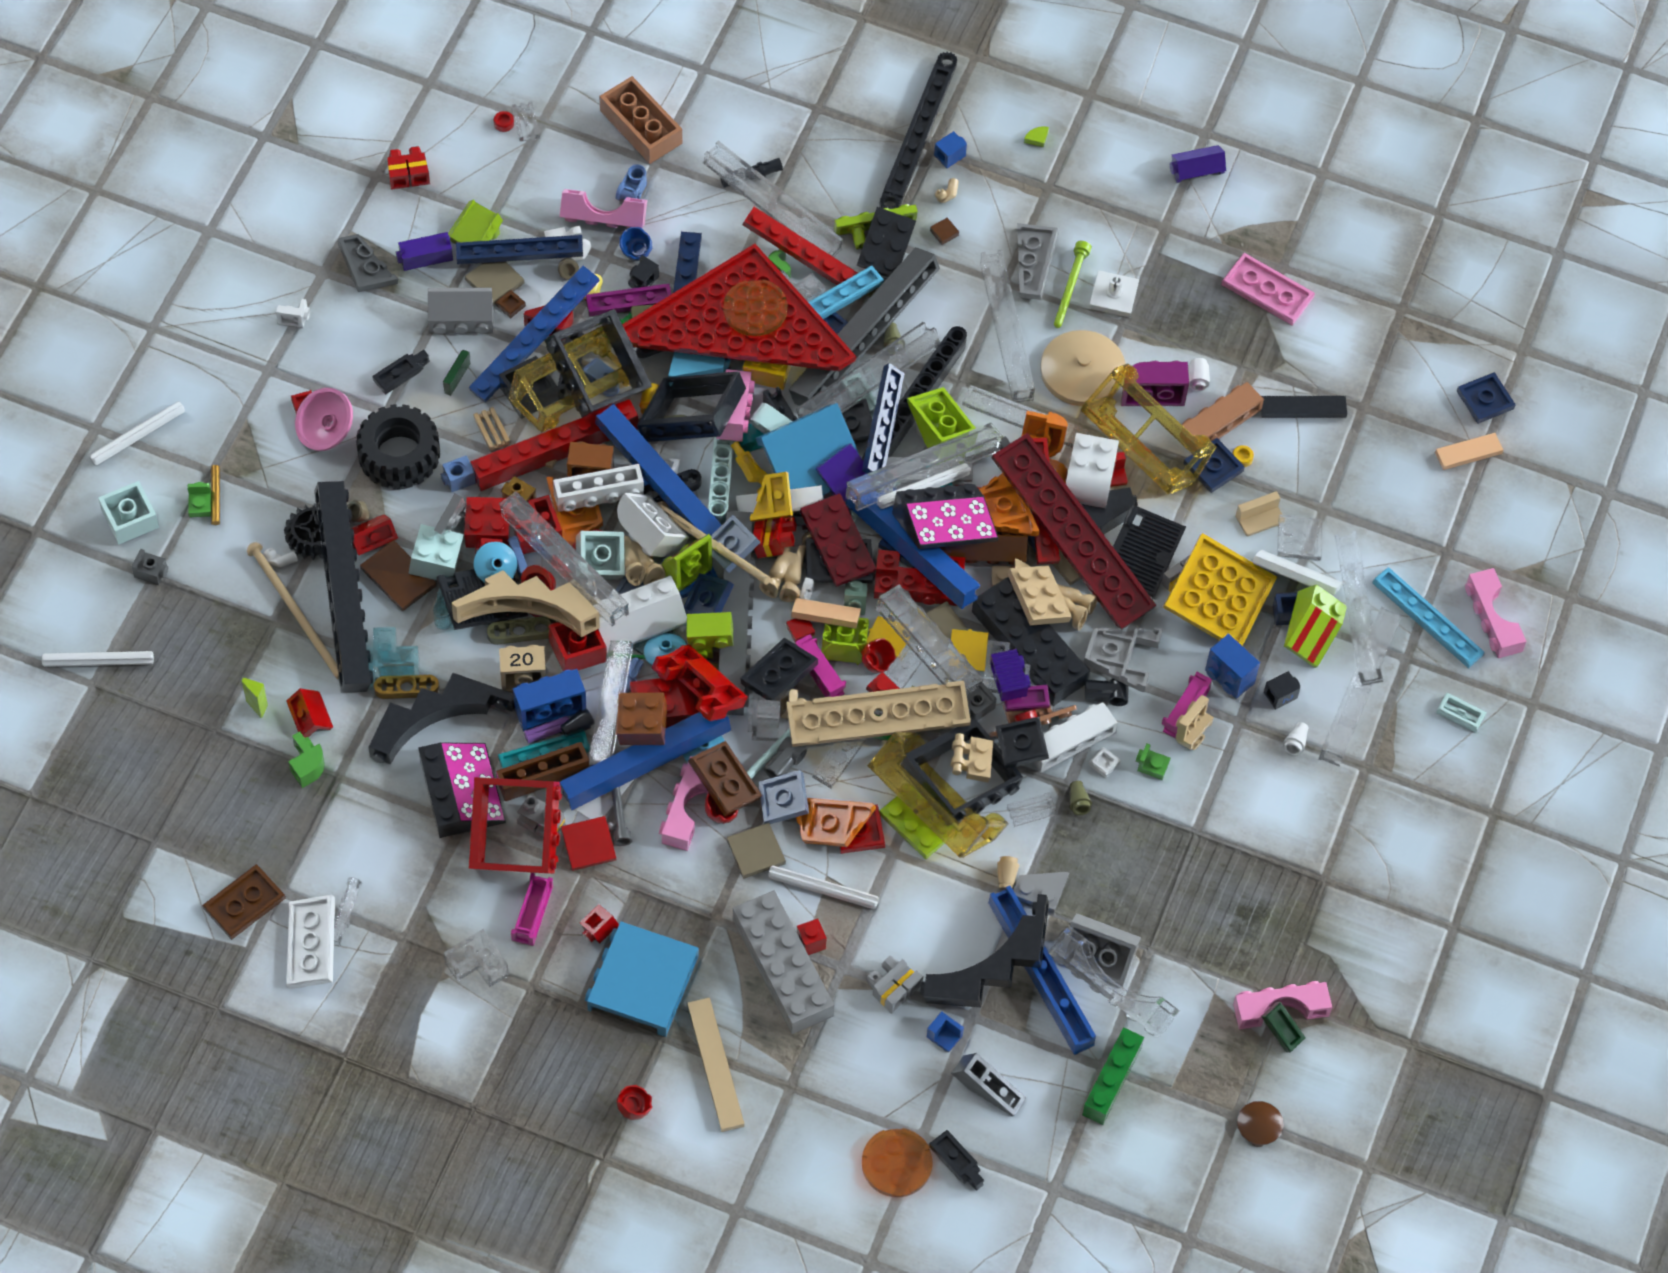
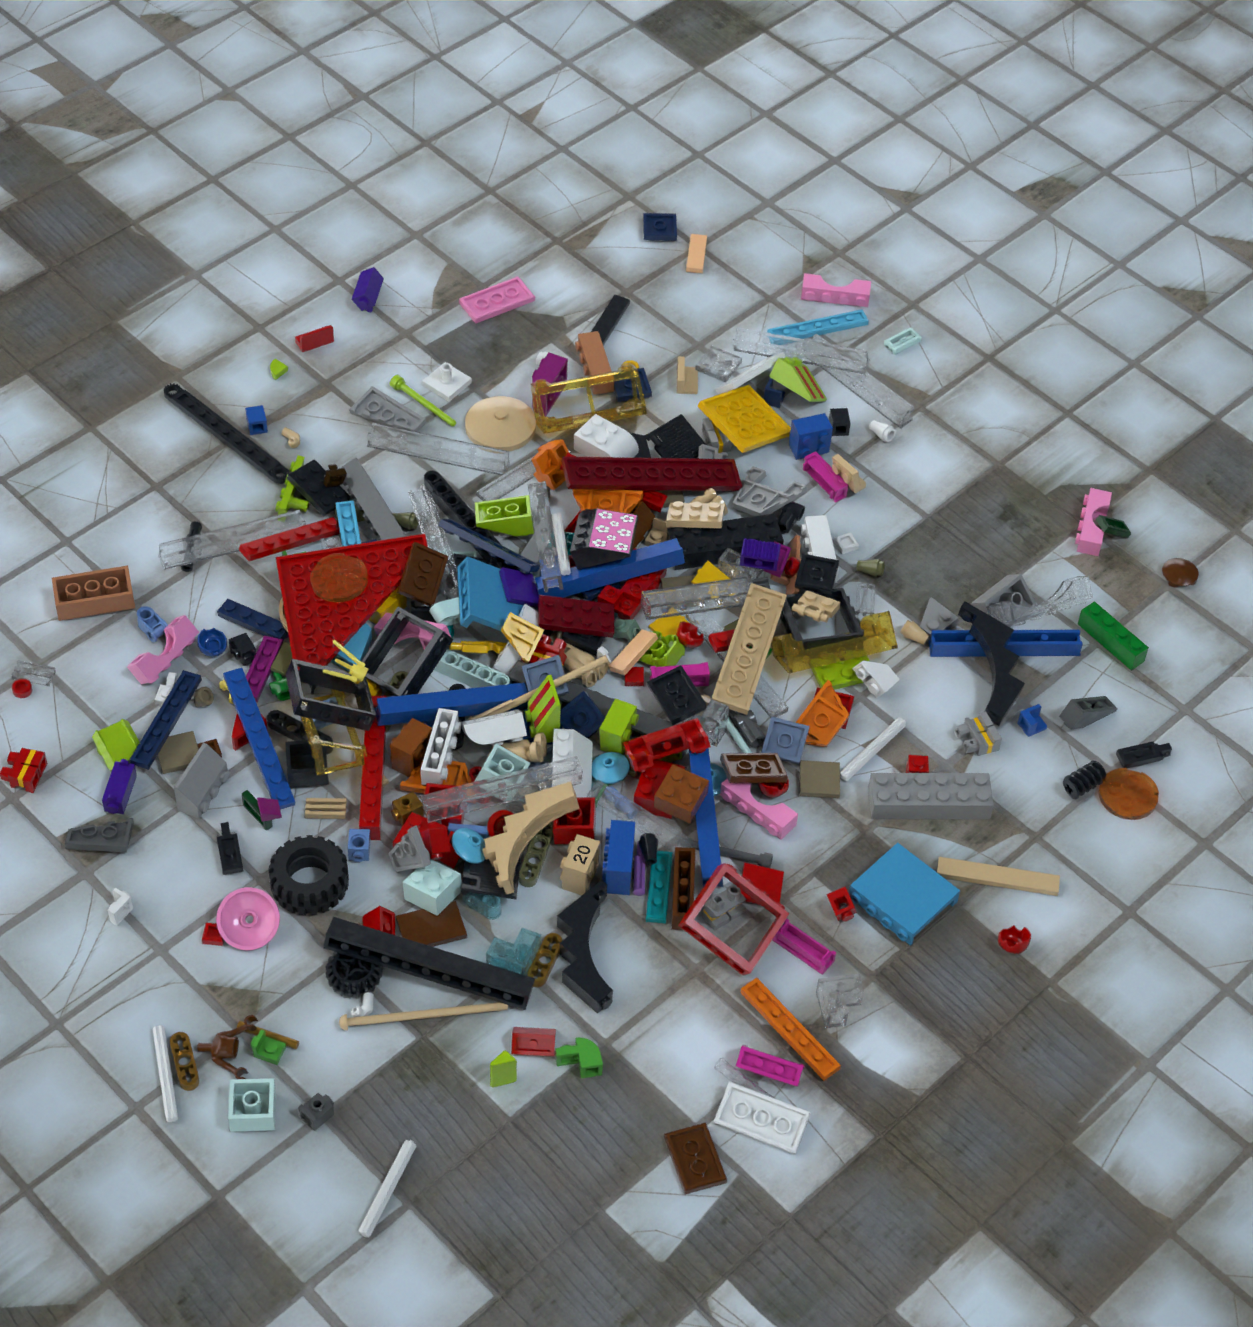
camera: 65 degrees left, 10 degrees down
(161, 433) = (181, 1069): none -> pearl gold beam
(183, 468) = (227, 1045): none -> reddish brown piece
(371, 926) = (769, 1065): none -> dark pink container
(426, 931) = (790, 1029): none -> orange plate
(450, 784) = (663, 957): slope -> none
(451, 377) = (269, 809): none -> magenta slope
(473, 529) = (436, 842): none -> red brick
(642, 373) = (357, 671): none -> light yellow plant
(804, 378) = (423, 574): none -> reddish brown tile
(883, 1107) = (1084, 779): none -> black piece
(899, 247) = (334, 476): none -> dark brown tile
(916, 853) = (876, 676): none -> white slope
(944, 231) = (326, 454): reddish brown tile -> none
(1100, 149) = (315, 338): none -> red panel
(1148, 579) = (709, 452): none -> light grey plate
(1152, 762) = (861, 516): bright green bracket -> none

